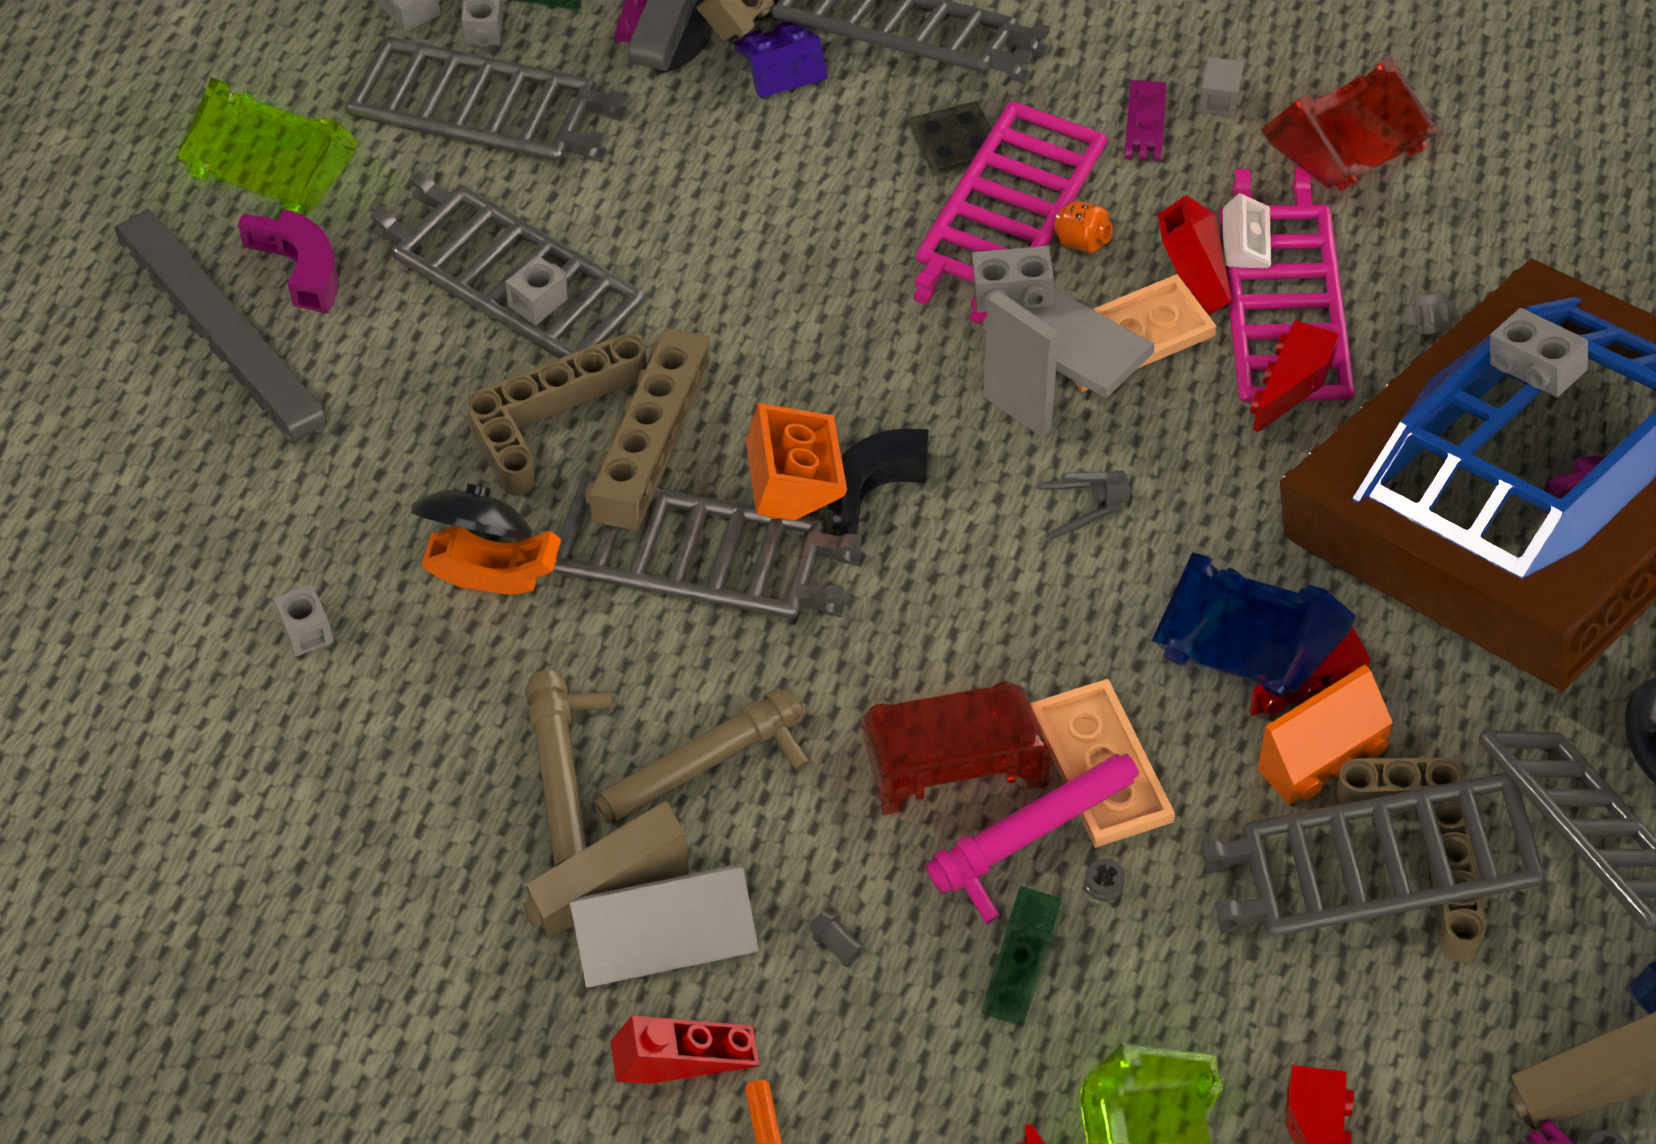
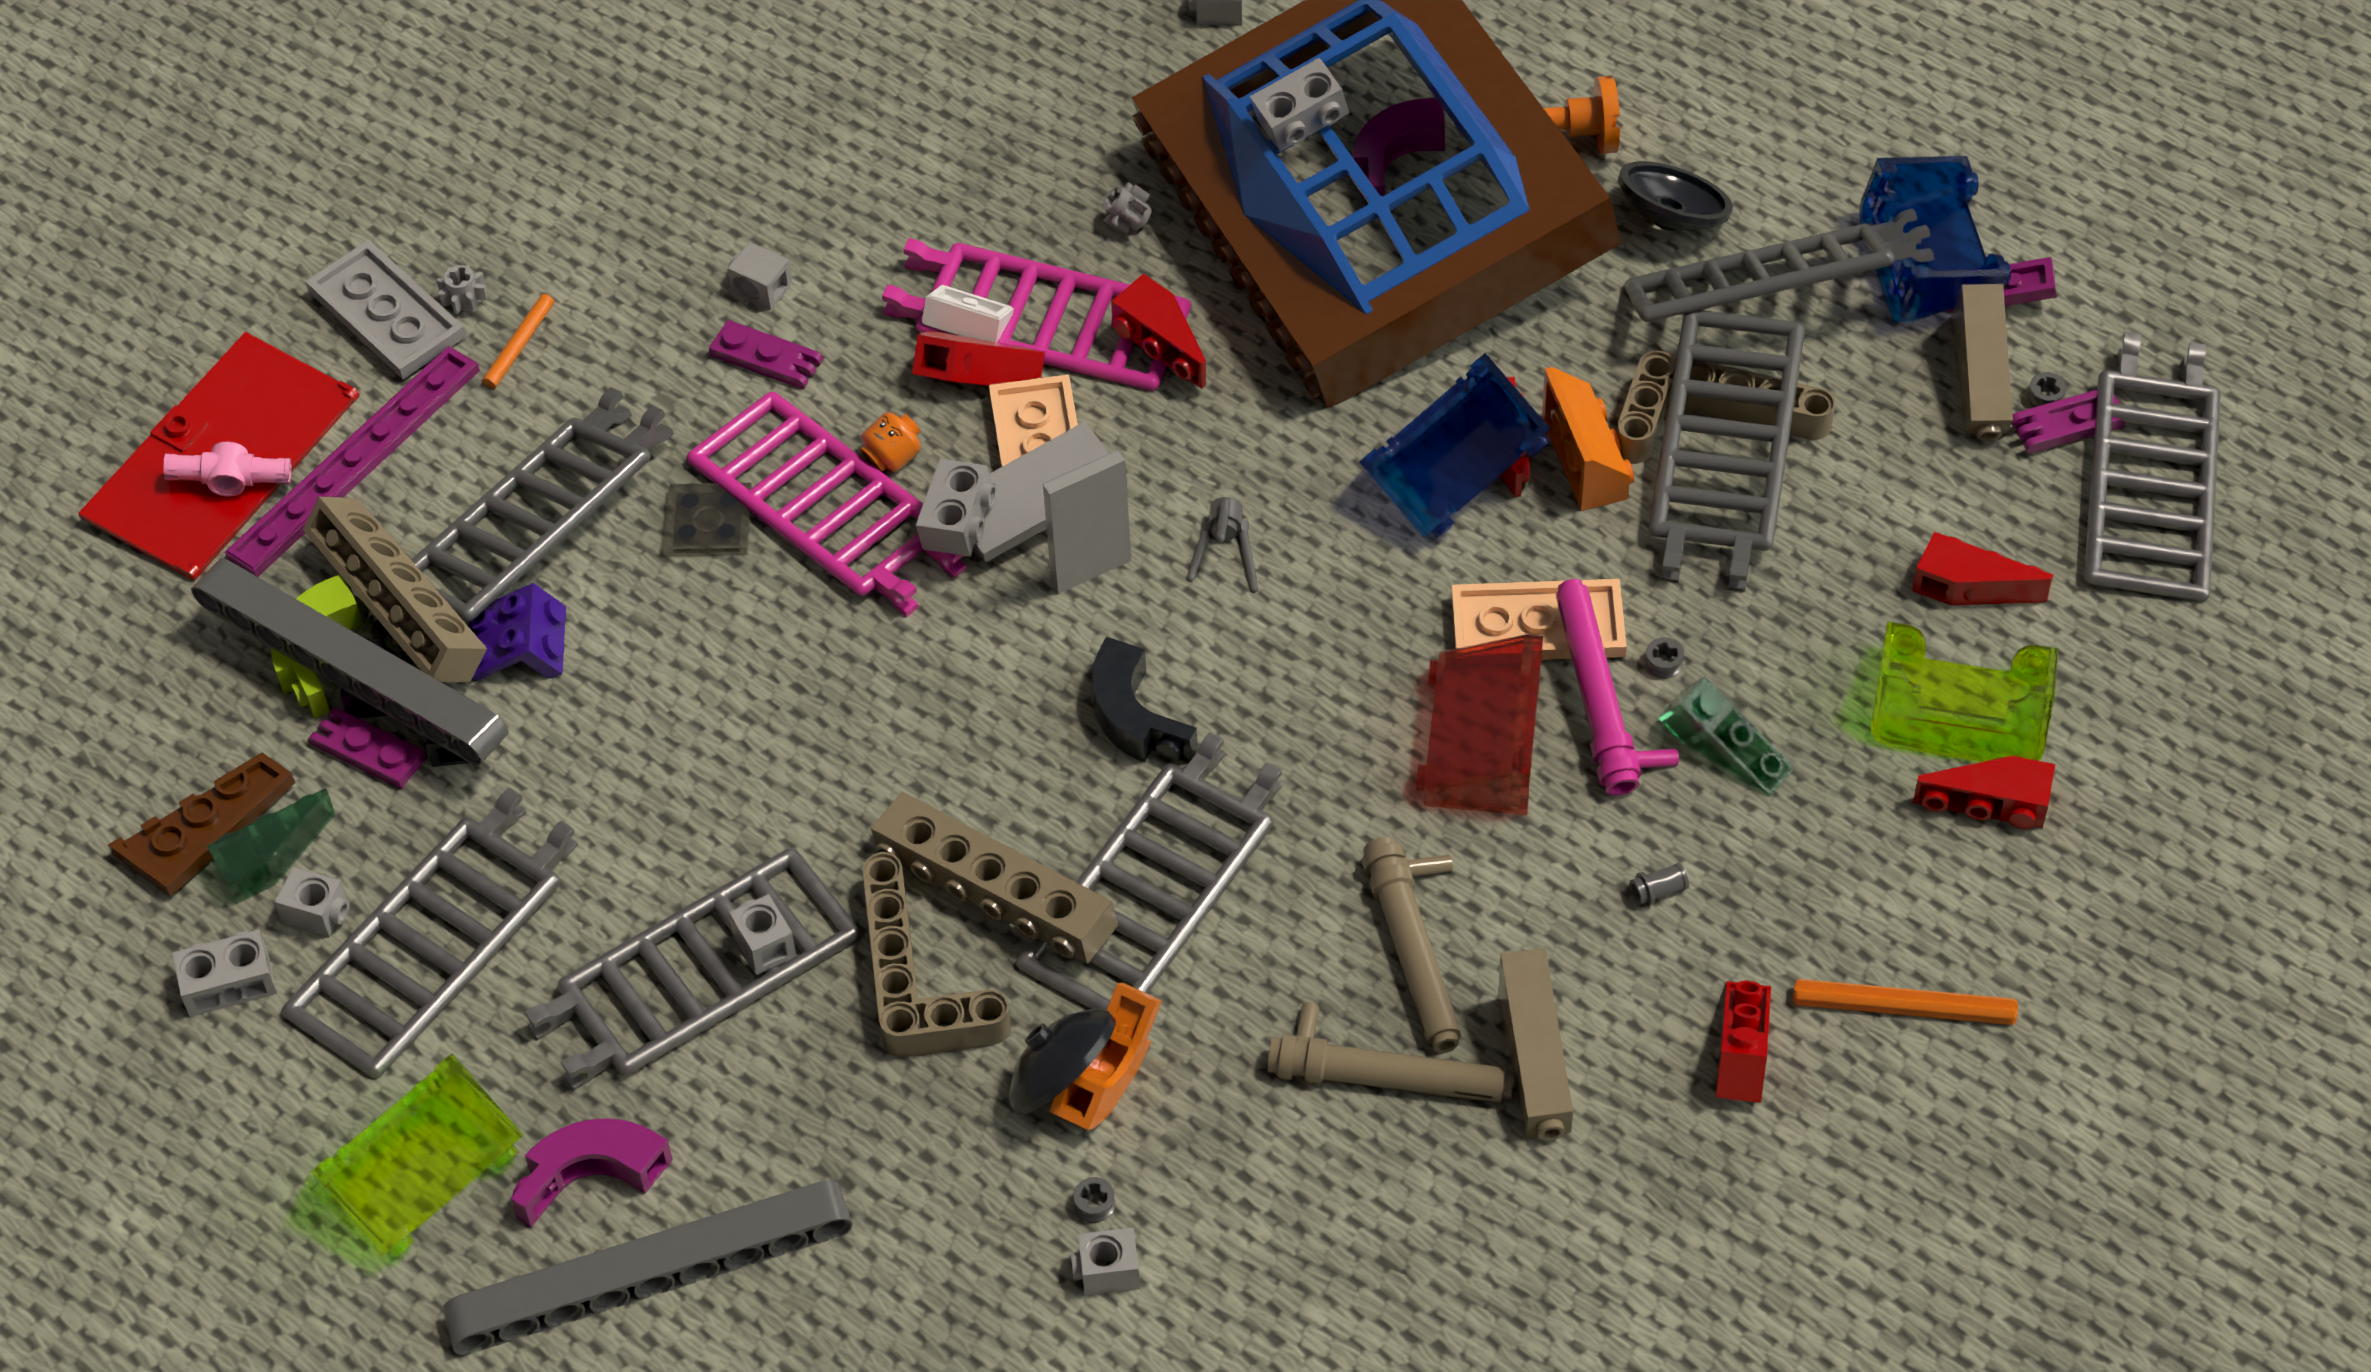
camera: 70 degrees left, 0 degrees up
(377, 598) = (1099, 1213): none -> dark grey bush
(664, 925) = (1609, 1015): light grey tile -> none
(793, 461) = (1098, 761): orange slope -> none
(1353, 127) = (869, 187): clear red windscreen -> none

